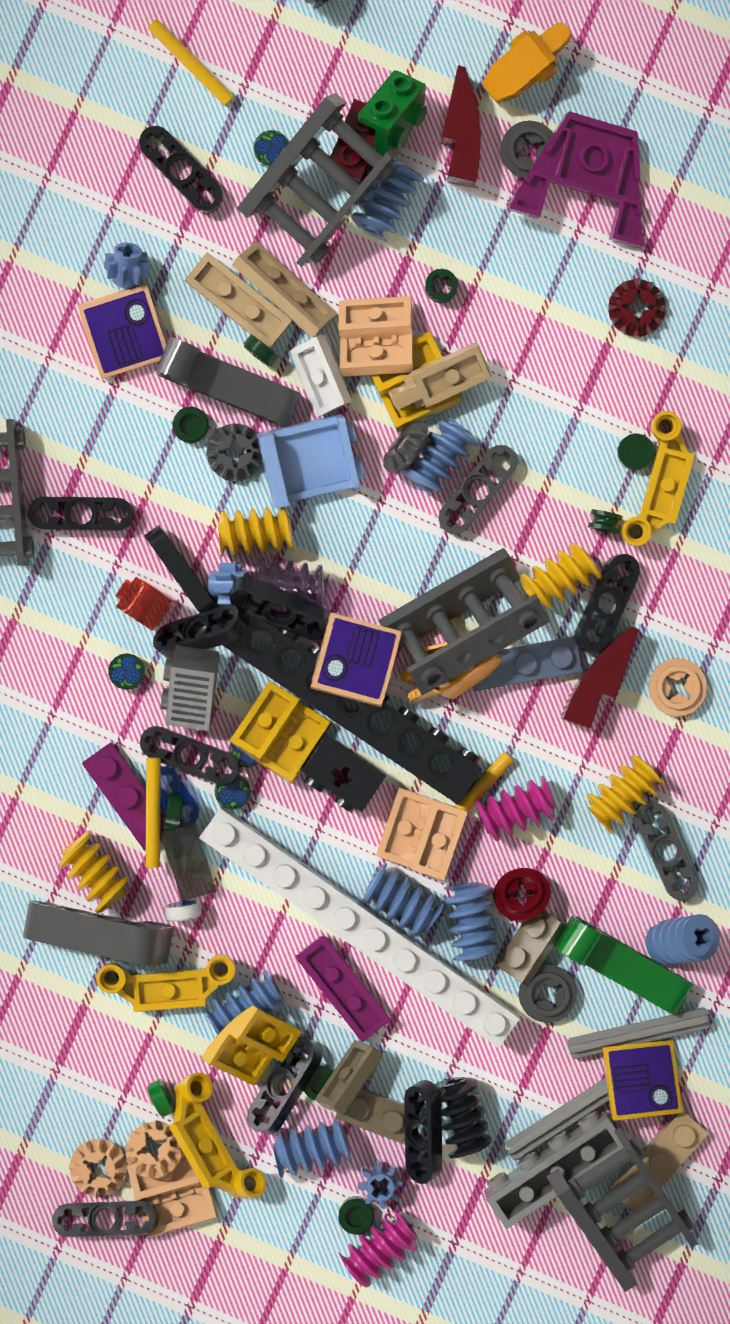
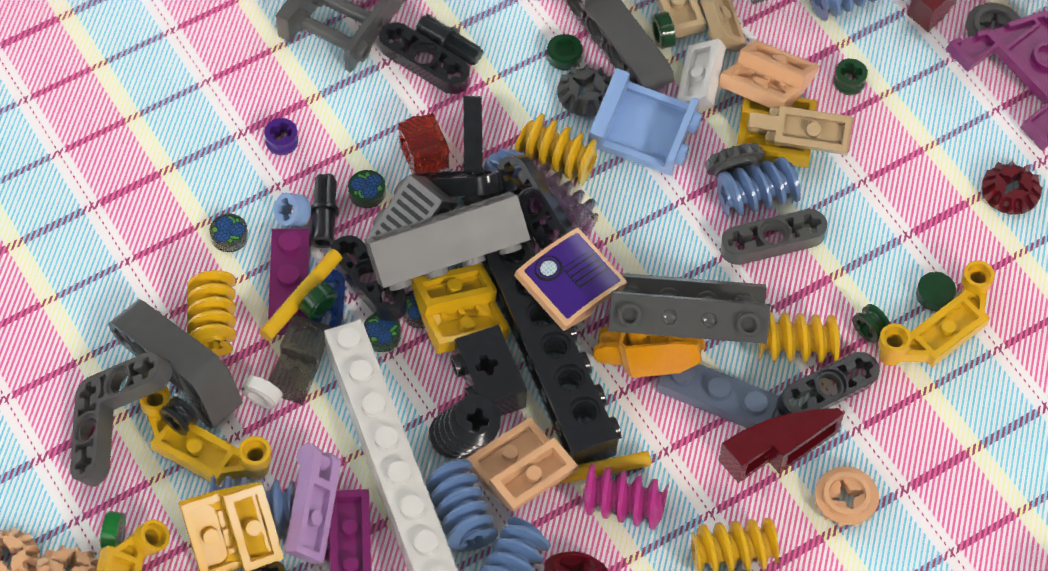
camera: 35 degrees right, 30 degrees down
(12, 666) = (275, 129): none -> dark purple bush
(48, 787) = (228, 232): none -> tile
(74, 1003) = (96, 402): none -> dark grey beam
(85, 737) = (283, 210): none -> light blue bush
(90, 483) = (449, 39): none -> black axle
(109, 717) = (324, 211): none -> black axle
(143, 982) = (179, 415): none -> black bush
(240, 701) = (447, 240): none -> light grey brick
(294, 980) = (312, 504): none -> lavender plate
(362, 841) = (465, 427): none -> black piece

